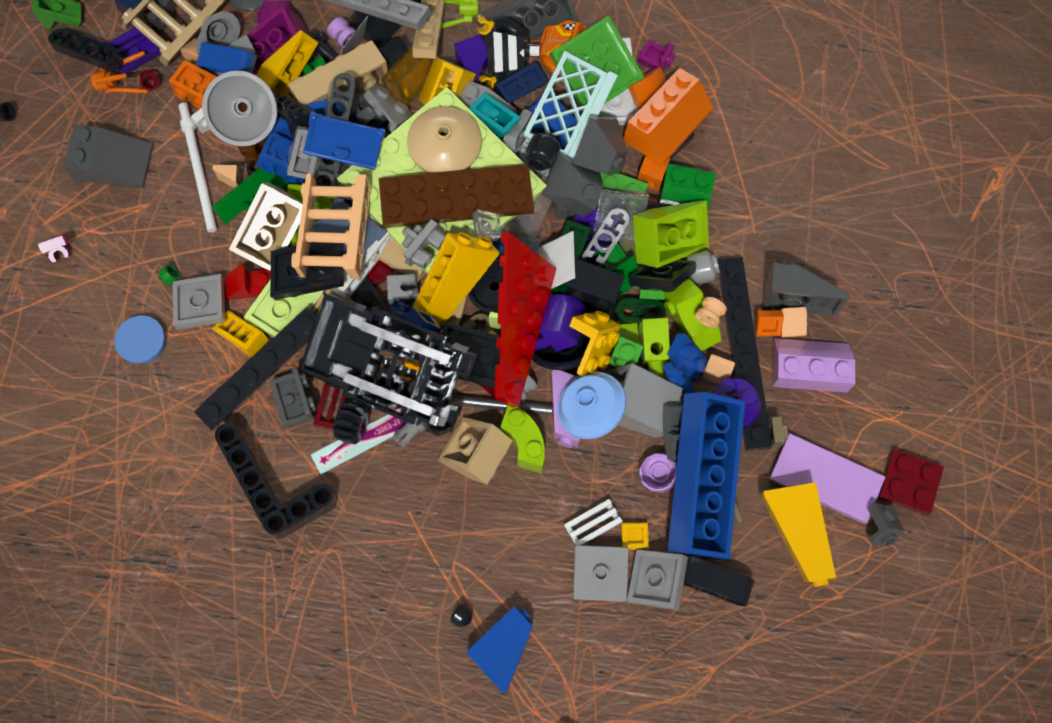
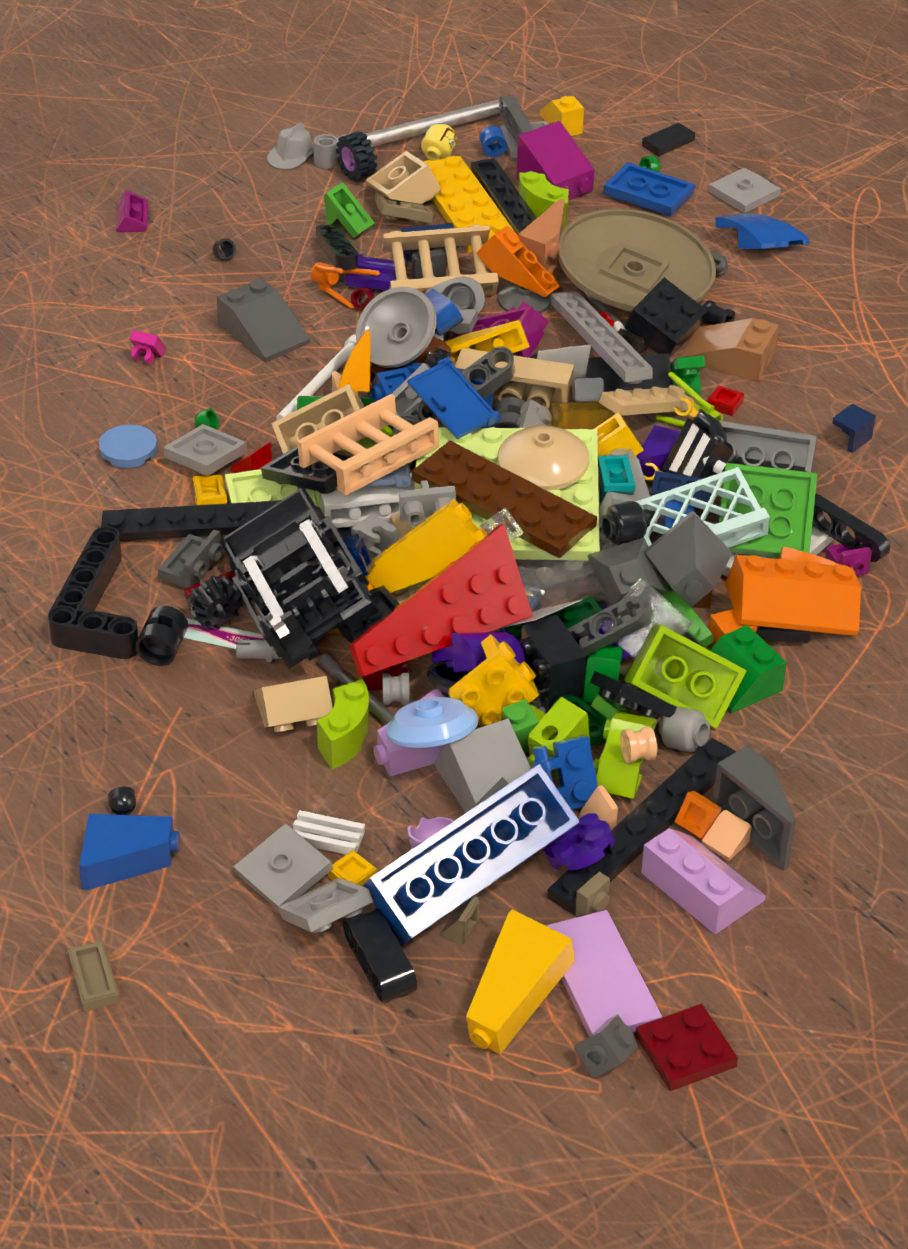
camera: 45 degrees right, 30 degrees down
(245, 165) = (358, 365): none -> light orange slope
(345, 473) = (161, 635): none -> black wheel
(658, 36) = (864, 534): none -> black beam

